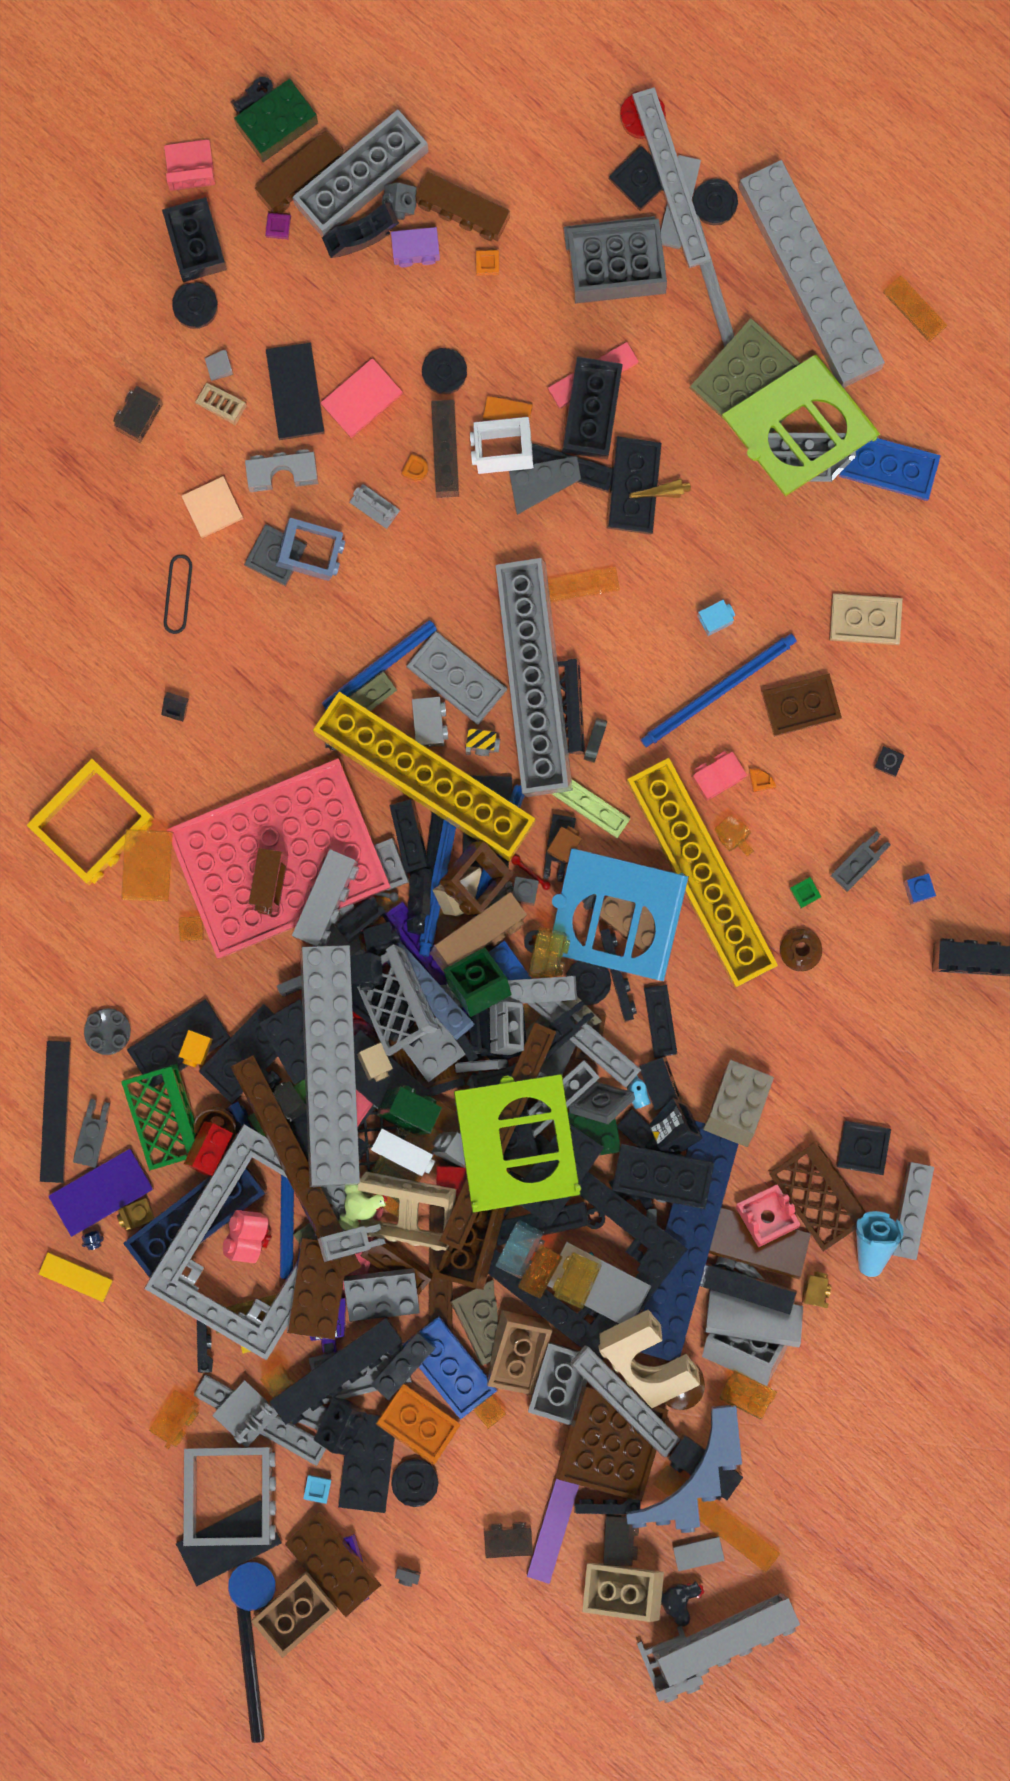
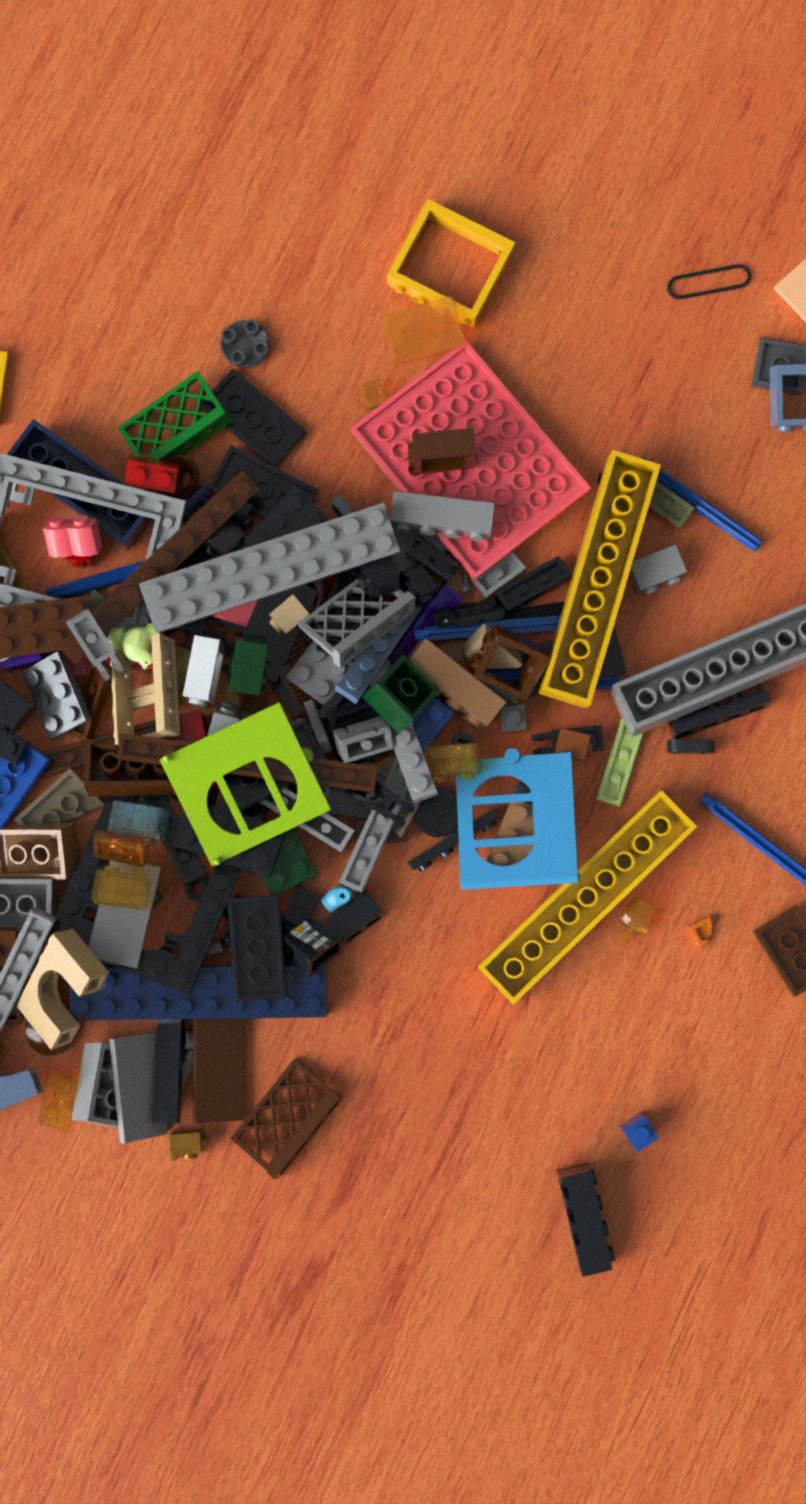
camera: 75 degrees right, 0 degrees up
(55, 1111) = (150, 318): black tile -> none
(91, 1136) = (136, 360): dark grey hinge -> none
(92, 1240) = (32, 391): dark blue plate -> none
(100, 1192) = (82, 386): dark purple tile -> none
(135, 1214) = (69, 426): pearl gold bracket -> none
(175, 706) = (593, 311): black plate -> none
(195, 1049) = (251, 433): light orange brick -> none
(456, 678) = (711, 586): light grey tile -> none
(482, 742) = (652, 630): brick -> none
(517, 861) = (541, 702): red hinge -> none
(601, 1102) = (315, 862): dark grey tile -> none
(660, 1021) = (419, 899): black tile -> none
(718, 776) = (693, 885): coral brick -> none
(738, 1103) = (356, 1005): dark tan brick -> none
(775, 1202) = (266, 1073): coral piece -> none
(792, 959) = (527, 1014): reddish brown piece -> none
(805, 892) = (598, 1011): green plate -> none
(858, 863) = (646, 1059): dark grey hinge -> none
(863, 1148) = (350, 1150): black tile -> none
(876, 1241) = (254, 1193): medium azure cone -> none
(889, 761) = (763, 1060): black tile -> none
(913, 1208) = (298, 1221): light grey brick -> none

